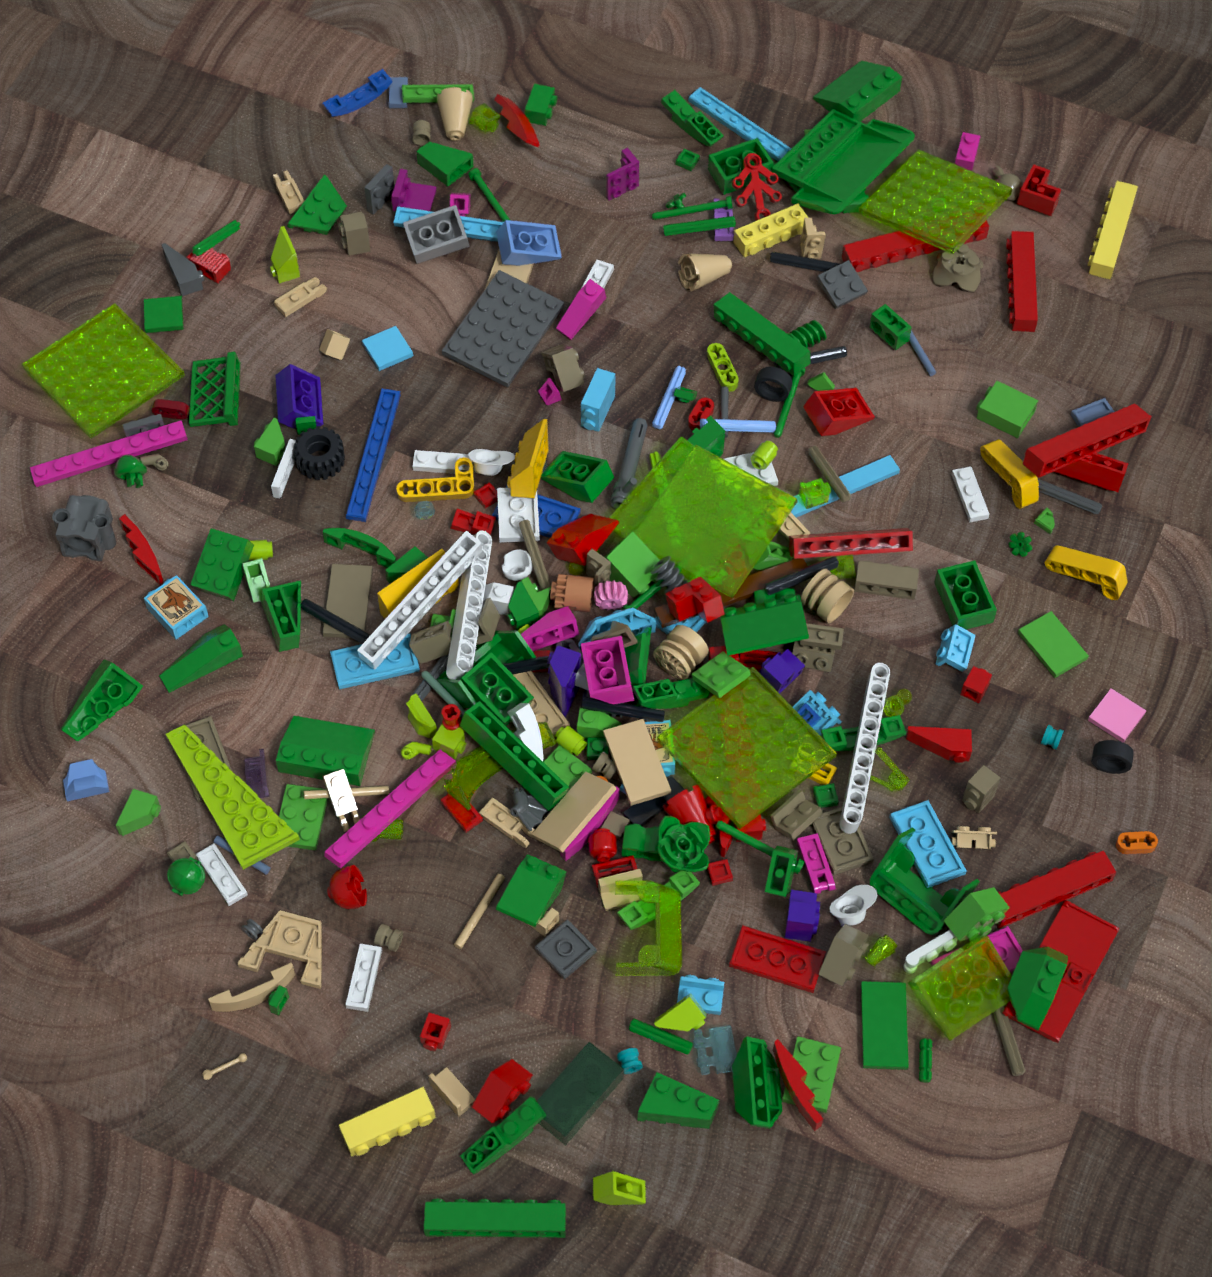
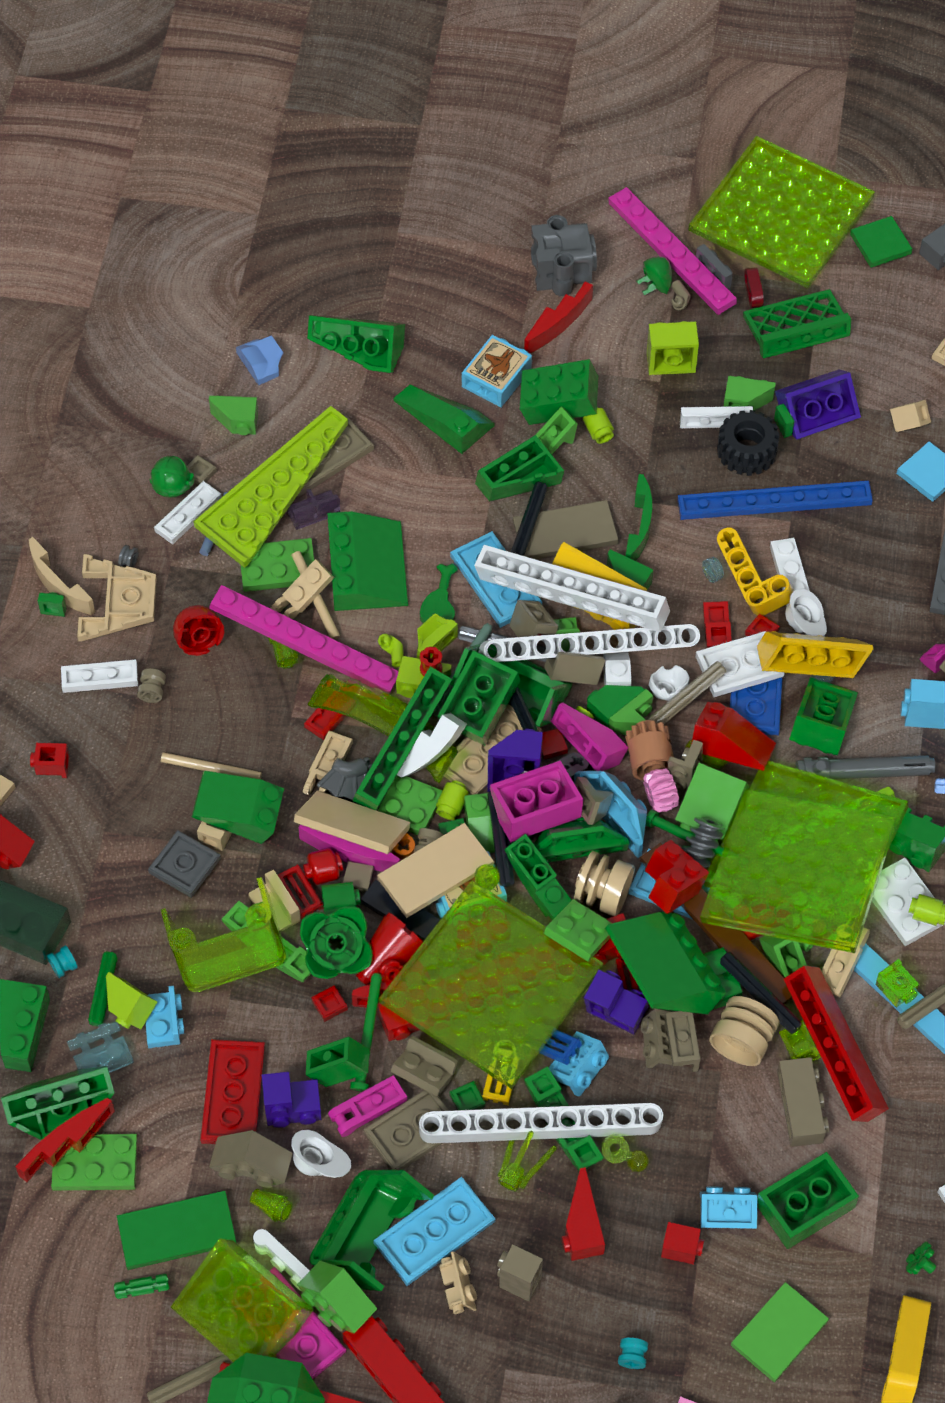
camera: 75 degrees right, 0 degrees up
(211, 476) = (672, 348): none -> lime brick
(387, 710) = (437, 601): none -> green piece
(655, 726) = (487, 876): none -> clear neon green plate

